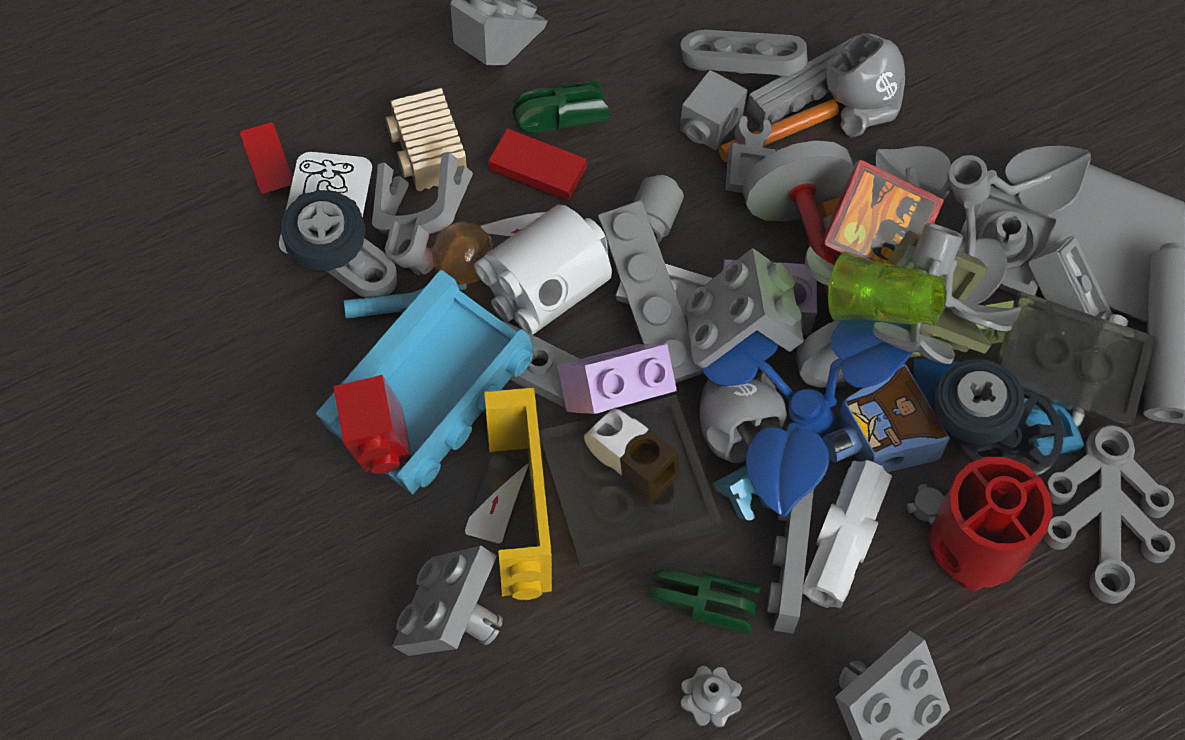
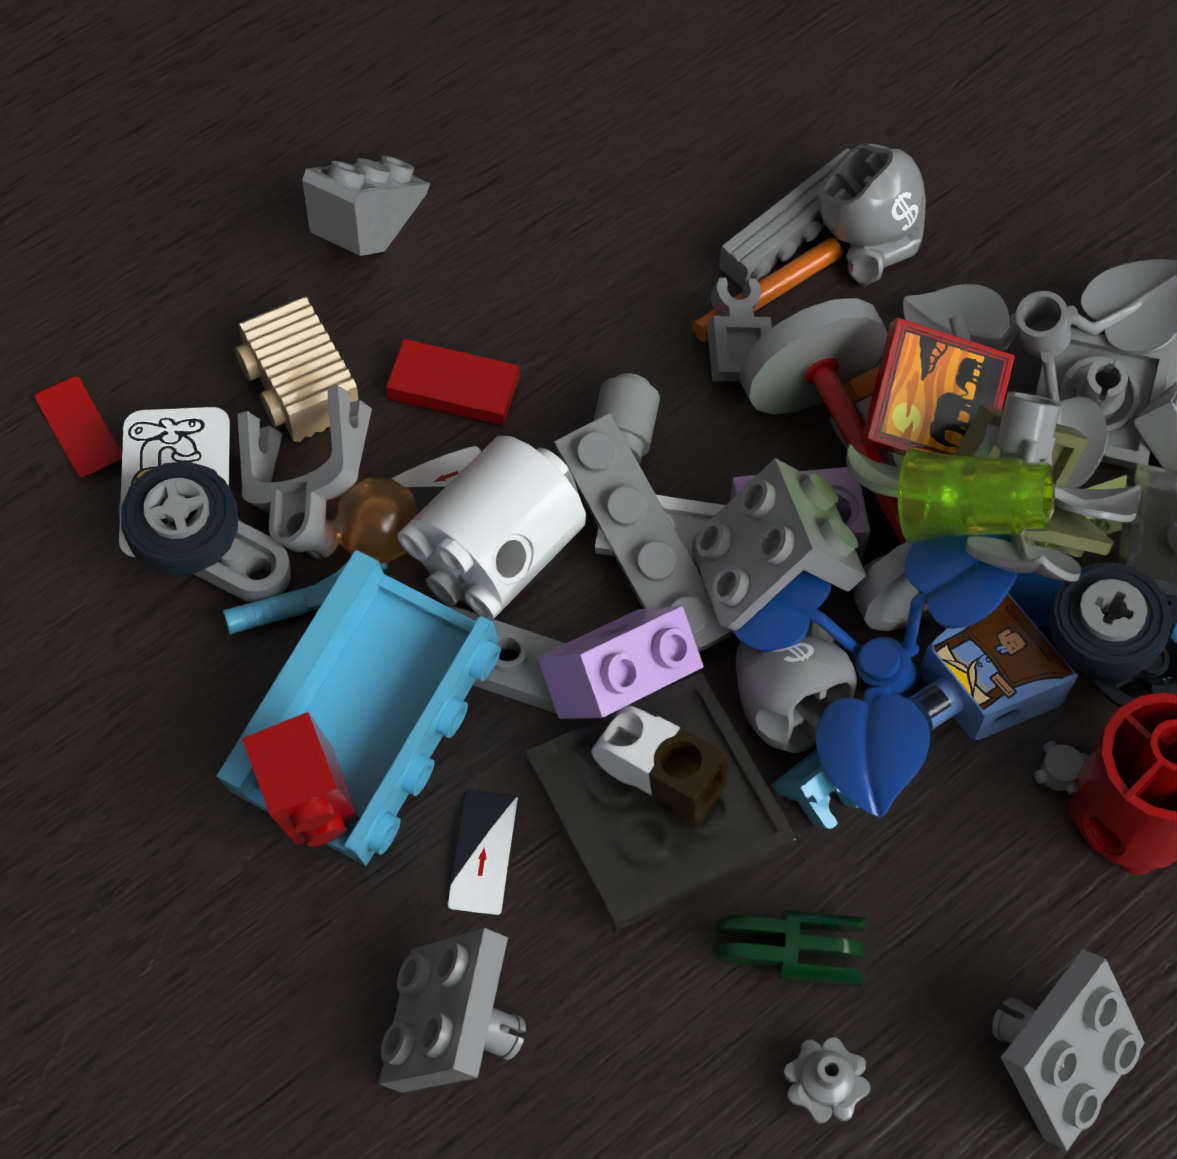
camera: 10 degrees left, 0 degrees up
(514, 426) = (494, 745): yellow panel -> none
(561, 107) = (472, 299): dark green arm -> none
(712, 110) = (676, 275): light grey brick -> none
(744, 52) = (704, 190): light grey plate -> none
(790, 555) = (897, 867): light grey plate -> none
(846, 534) = (964, 827): white piece -> none

